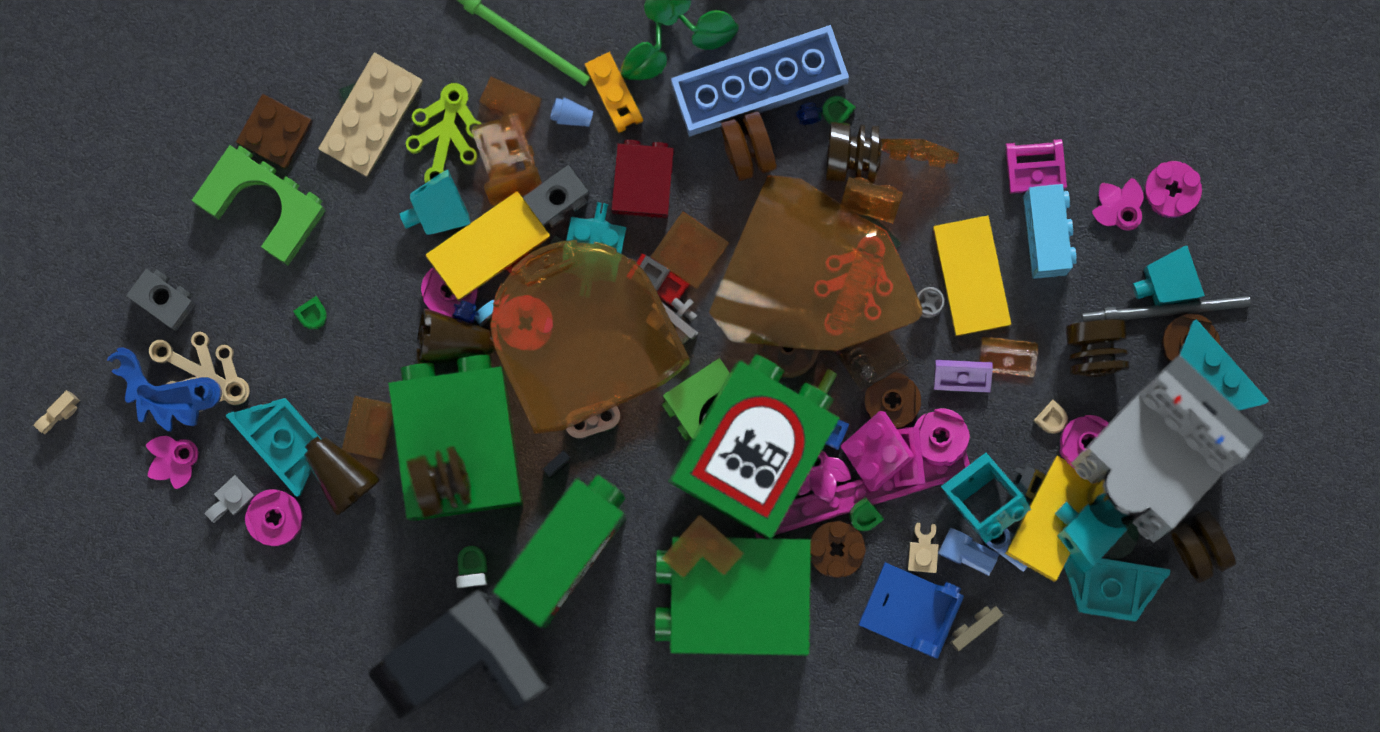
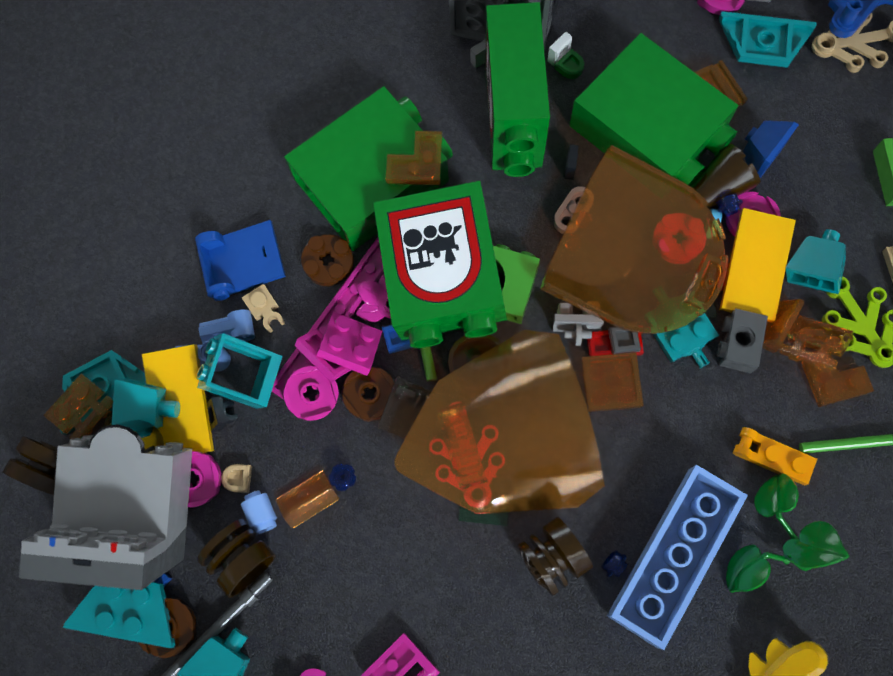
camera: 145 degrees right, 10 degrees down
(311, 314) = (826, 131): green tile -> none
(338, 474) = (710, 38): dark brown cone -> none
(385, 337) = (766, 143): none -> blue slope
(439, 481) = (643, 55): dark brown wheel -> none
(542, 636) = (477, 54): none -> light grey tile
(570, 113) = (791, 411): medium blue cone -> none
(643, 179) = (693, 405): dark red brick -> none
(747, 146) = (640, 492): reddish brown wheel -> none
(837, 109) = (595, 586): green tile -> none
(865, 515) = (324, 296): green tile -> none
(871, 199) = (518, 526): clear orange plate -> none
(919, 150) = (502, 602): clear orange plate -> none
(933, 299) = (397, 485): light grey wheel -> none
(963, 376) = (329, 453): medium lavender plate -> none
(965, 634) = (180, 287): dark tan plate -> none
(970, 343) = (337, 471): none -> clear blue plate
(972, 275) = (383, 539): yellow tile -> none
(1049, 231) = (345, 622): medium azure brick -> none
(1054, 373) = (259, 512): none -> light blue brick
(1142, 584) = (75, 403): none -> clear orange plate

